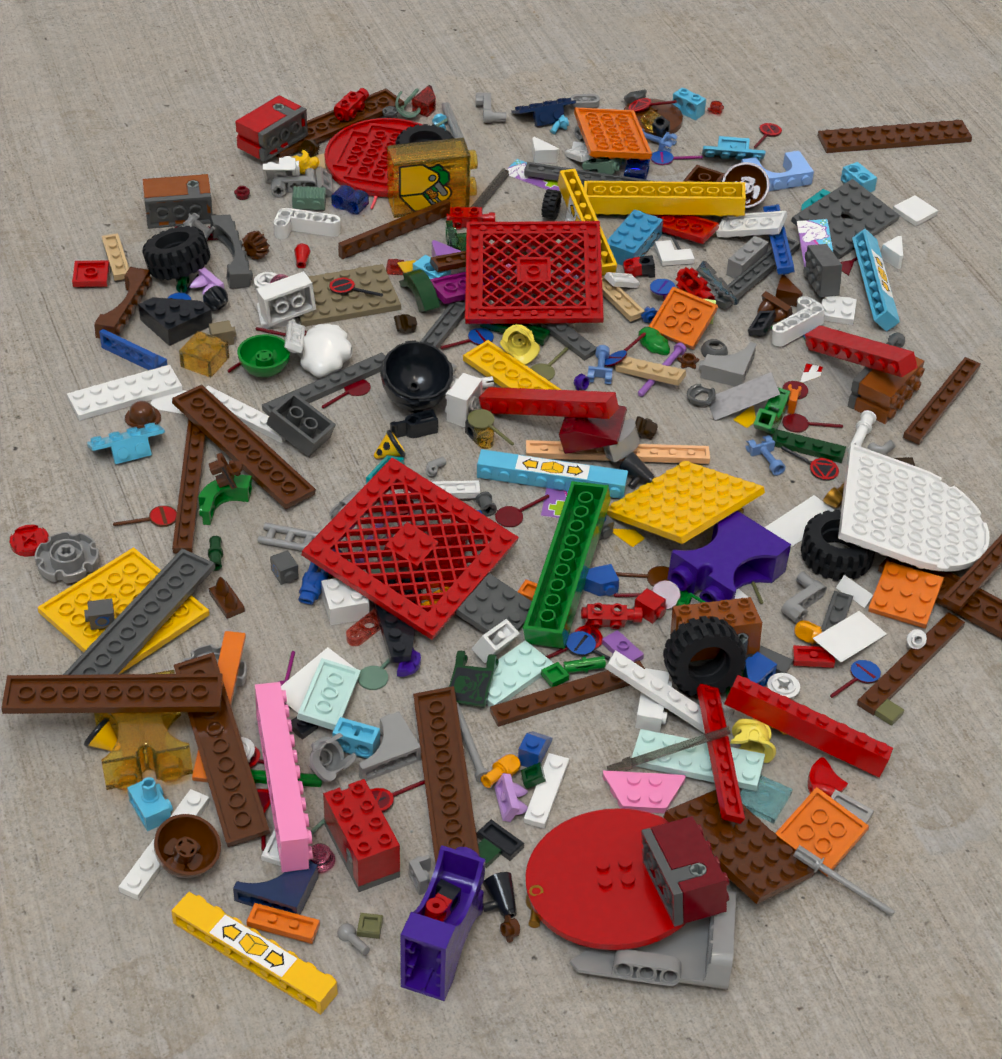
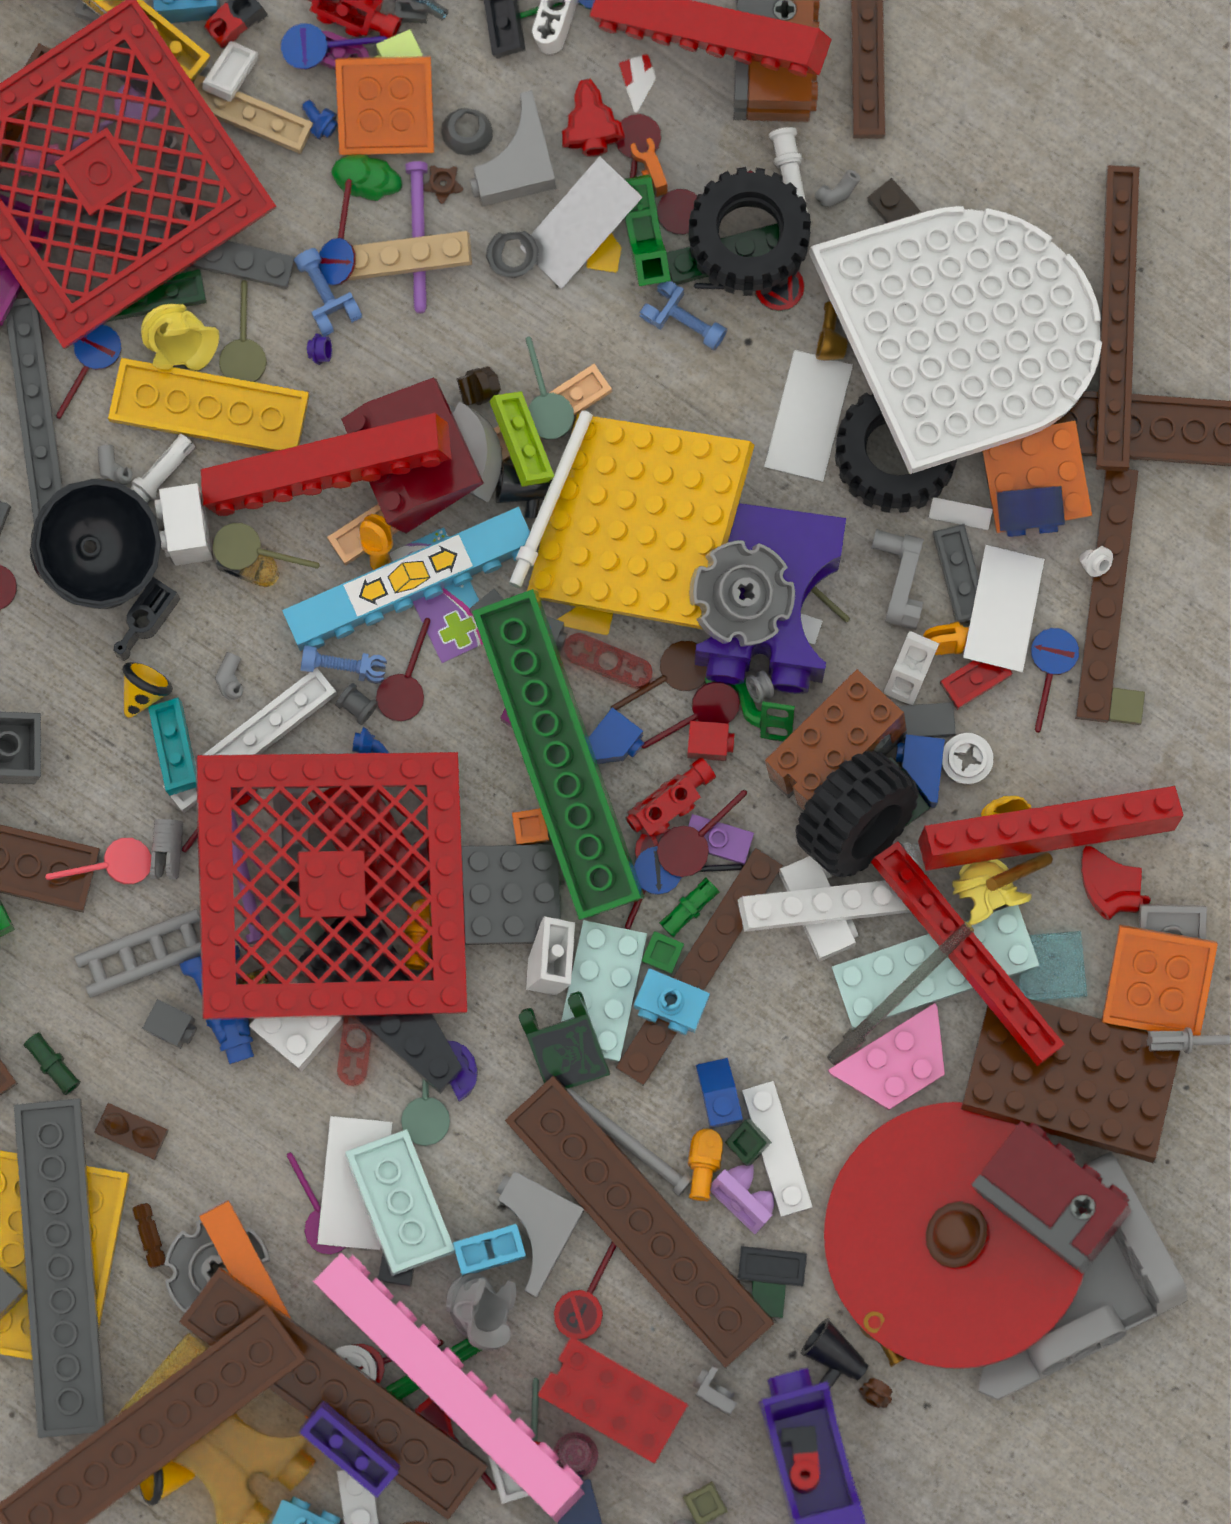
camera: 30 degrees left, 35 degrees up
(195, 641) = (149, 1235): none -> reddish brown axle
(205, 766) = (349, 1448): none -> dark purple brick
(320, 501) = (124, 860): none -> coral piece
(502, 491) = (312, 659): none -> medium blue bar
(542, 687) = (671, 1002): none -> medium azure brick
(549, 443) = (376, 540): none -> light orange arm
(604, 640) = (684, 849): none -> dark red piece
(614, 868) = (956, 1234): none -> reddish brown hat
(618, 485) = (527, 554): none -> white bar
(622, 546) = (633, 663): none -> clear red beam
(650, 447) = (521, 438): none -> lime plate
(672, 451) = (549, 411): none -> sand green piece
(694, 590) = (760, 686): none -> light grey bush
(713, 535) = (718, 592): none -> light grey piece
(776, 736) = (1019, 871): none -> pearl gold bar
(779, 370) = (591, 122): none -> red rock
(781, 633) = (911, 668): none -> white slope
(825, 414) = (757, 191): none -> black tyre
(893, 597) = (1030, 509): none -> clear blue brick

